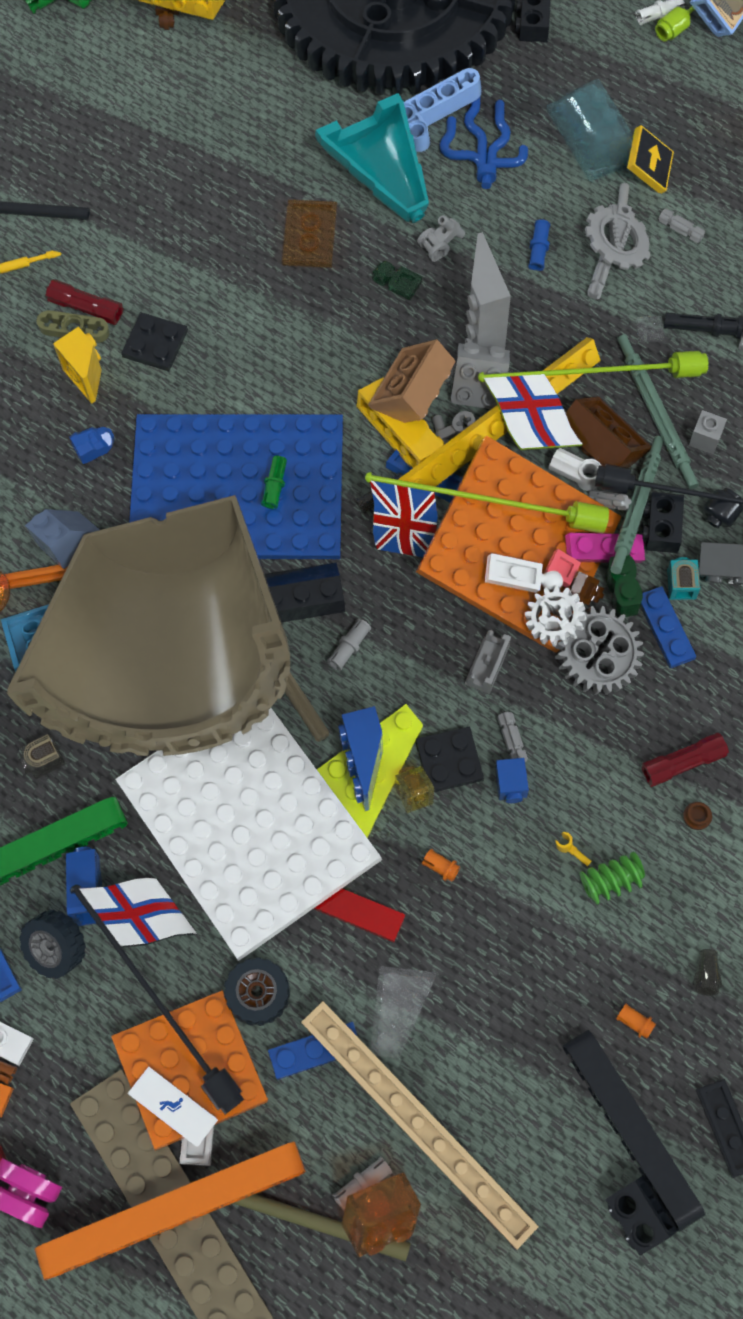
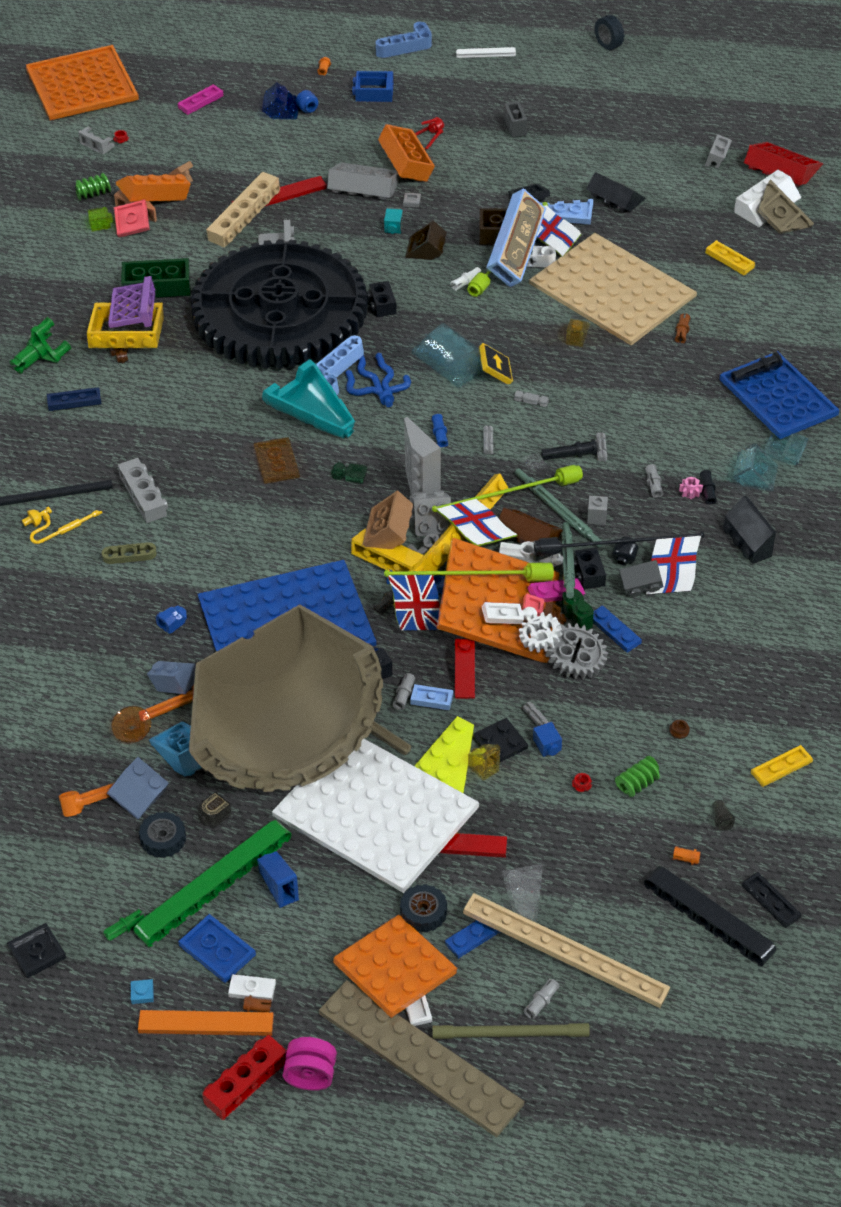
camera: 20 degrees left, 20 degrees down
(52, 944) = (258, 915): black wheel -> none
(68, 296) = (119, 535): dark red axle -> none
(80, 361) = (145, 569): yellow slope -> none
(84, 70) = (74, 399): none -> dark blue plate
(119, 220) = (142, 490): none -> light grey brick
(140, 915) = (328, 880): flag -> none
(154, 341) = (192, 548): black plate -> none
(169, 1210) = (416, 1045): orange beam -> none
(172, 1106) = (394, 984): white sticker -> none
(274, 483) = (314, 601): green axle -> none
(364, 741) = (440, 741): blue slope -> none
(381, 1215) = (563, 1002): clear orange brick -> none
(382, 664) = (431, 697): none -> light blue plate
(440, 237) = (370, 441): light grey piece -> none
(440, 634) = (464, 669): none -> red slope
(441, 865) = (520, 802): orange pin -> none
(488, 662) = (503, 677): light grey hinge -> none
(542, 857) = (582, 778): none -> red plate
(572, 849) = (600, 770): yellow hand -> none
(621, 225) = (491, 408): light grey bar -> none
(648, 1211) = (736, 957): black brick -> none
(683, 579) = (615, 597): brick -> none
(703, 752) = (647, 706): dark red axle -> none

